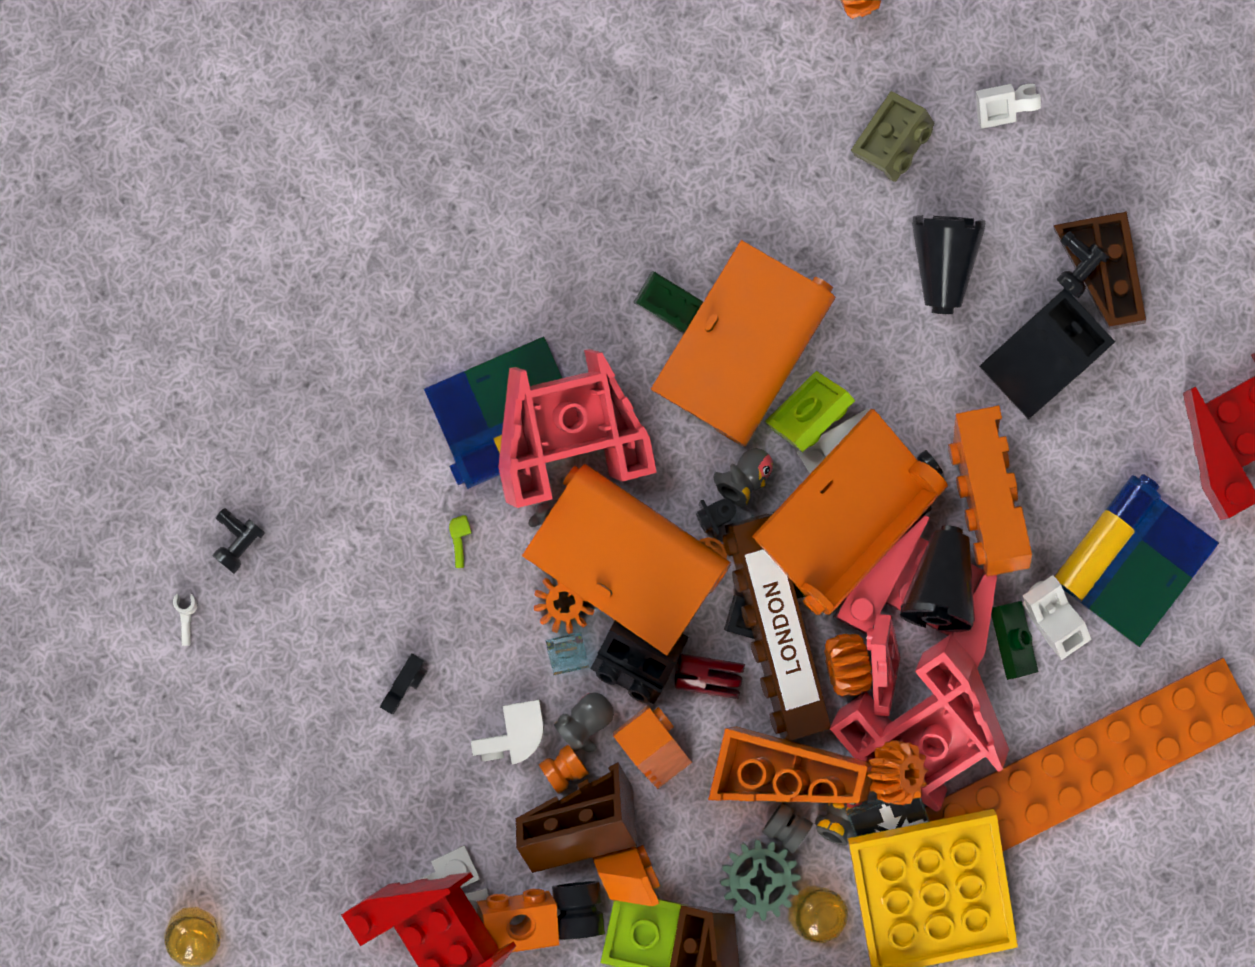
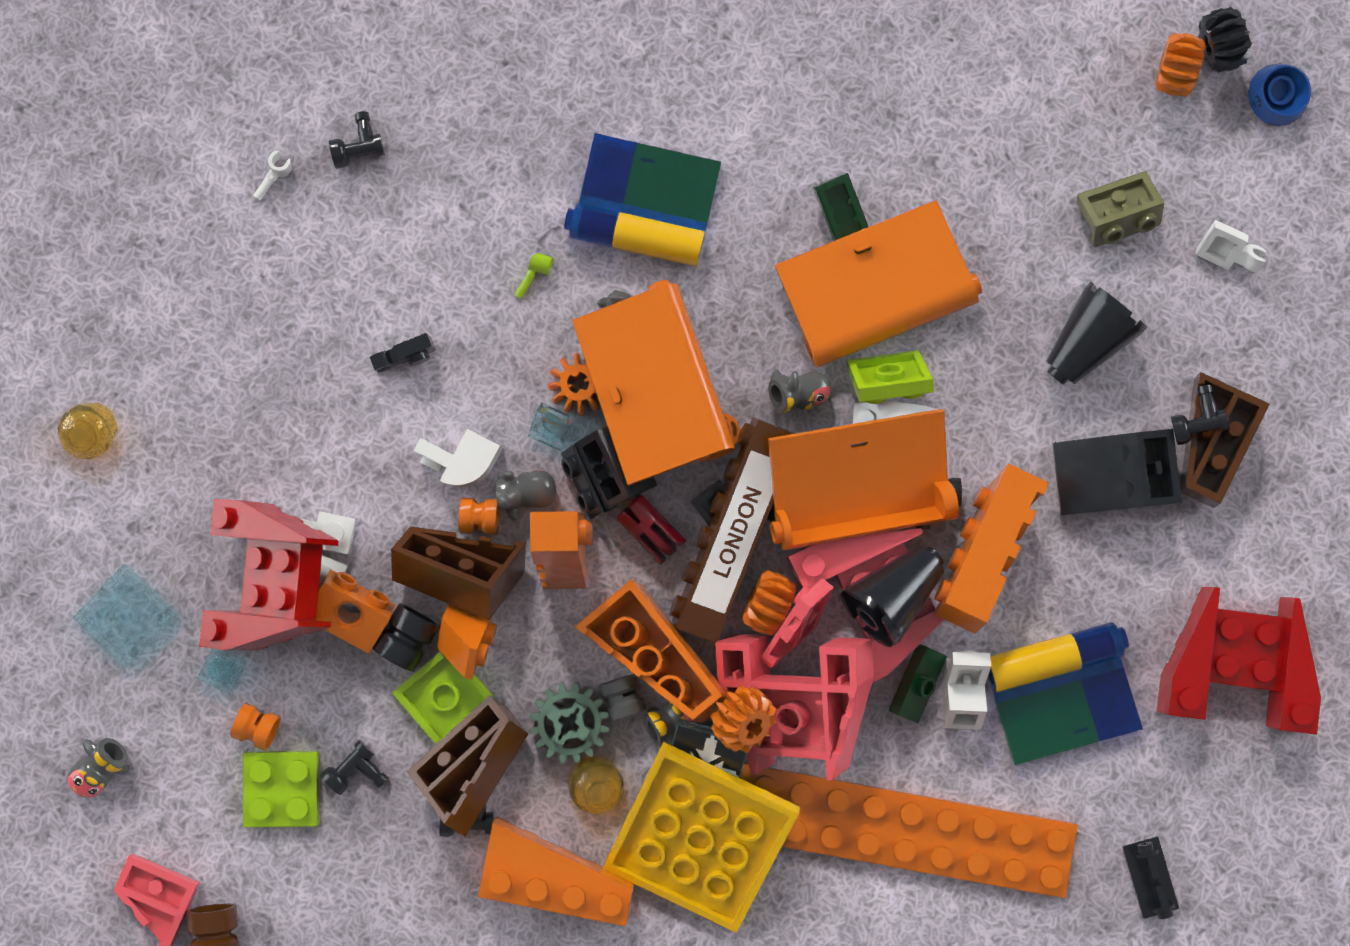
camera: 40 degrees right, 0 degrees up
(566, 421) = (688, 236): coral wedge -> none
(715, 515) = (752, 402): black hinge -> none

